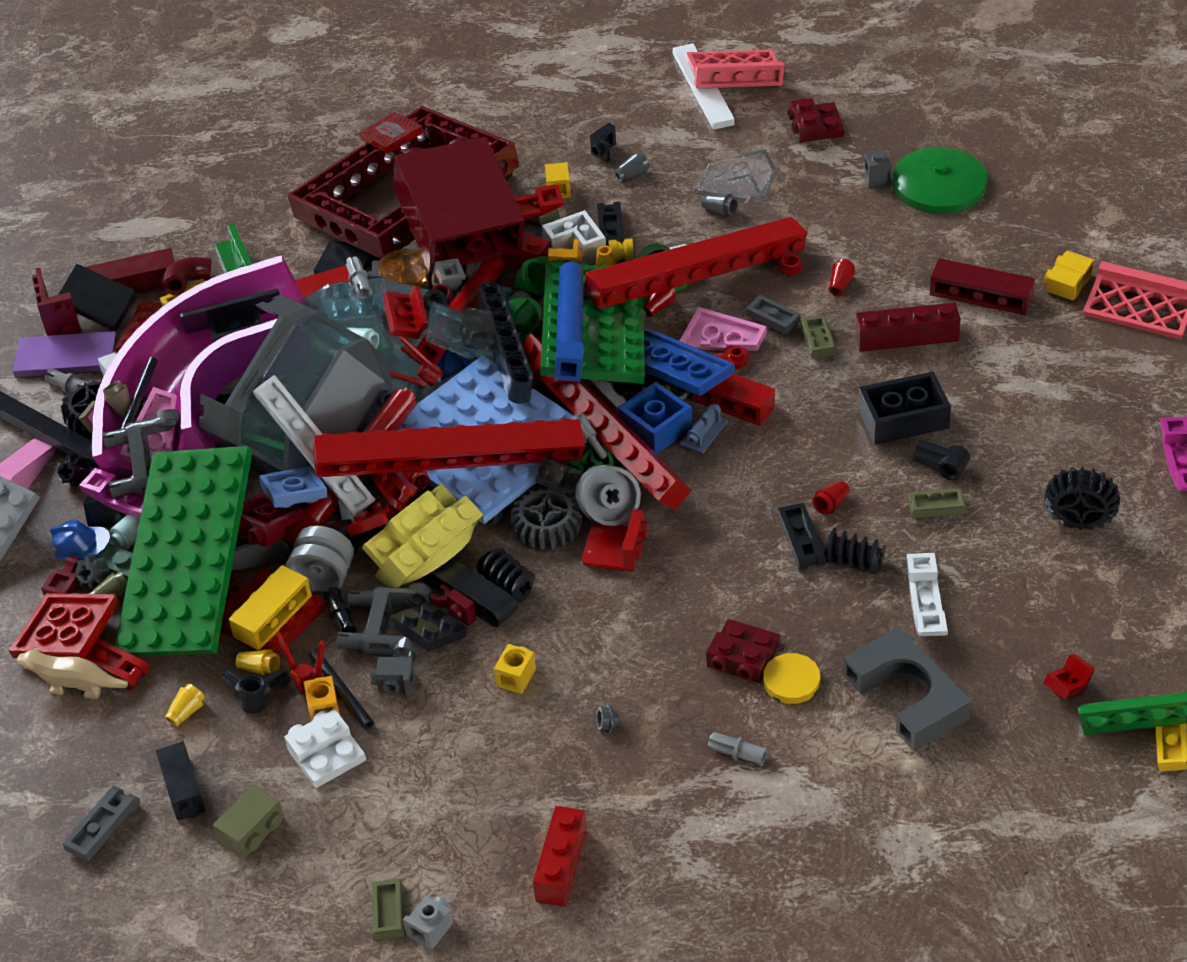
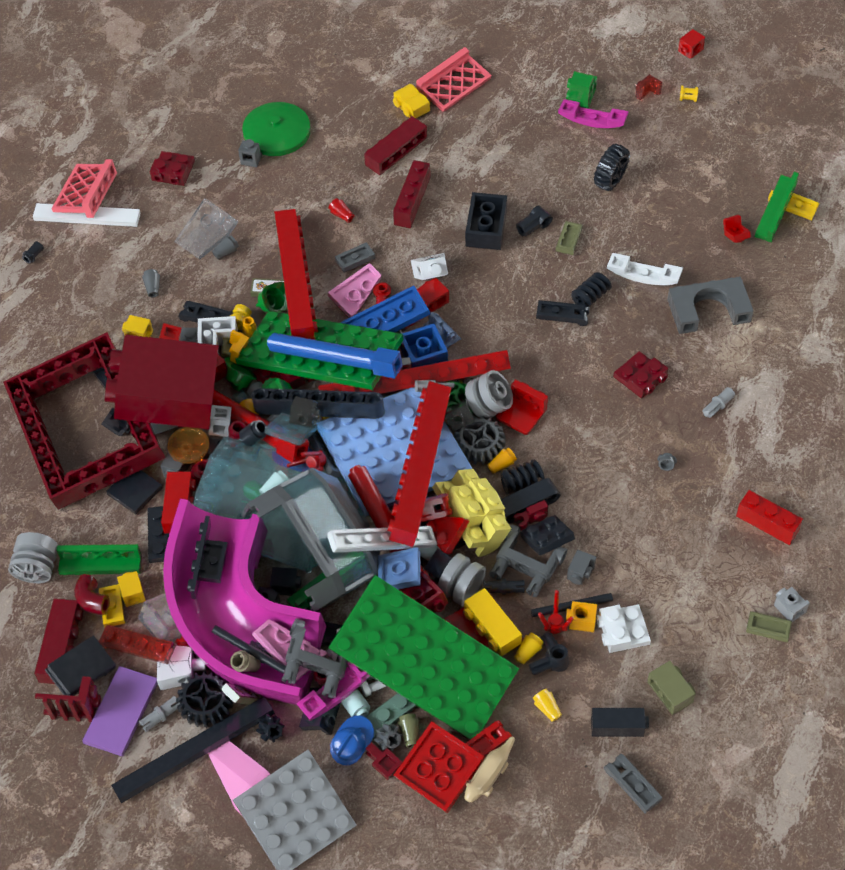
camera: 70 degrees left, 10 degrees up
(213, 214) = (33, 557): none -> light grey wheel
(358, 277) = (211, 465): light grey axle -> none
(391, 132) = (28, 408): red tile -> none
(406, 313) = (261, 448): red bracket -> none
(515, 668) = (608, 503): yellow brick -> none
(527, 551) = (503, 460): none -> light orange cone
(602, 141) = (115, 294): black bracket -> none
(622, 67) = (30, 255): none -> black pin
(786, 375) = (429, 266): none -> white torso
(790, 265) = (311, 232): red plate -> none
(791, 678) = (675, 357): yellow tile -> none
(818, 336) = (390, 242): olive plate -> none
(829, 498) = (539, 288): red cone -> none

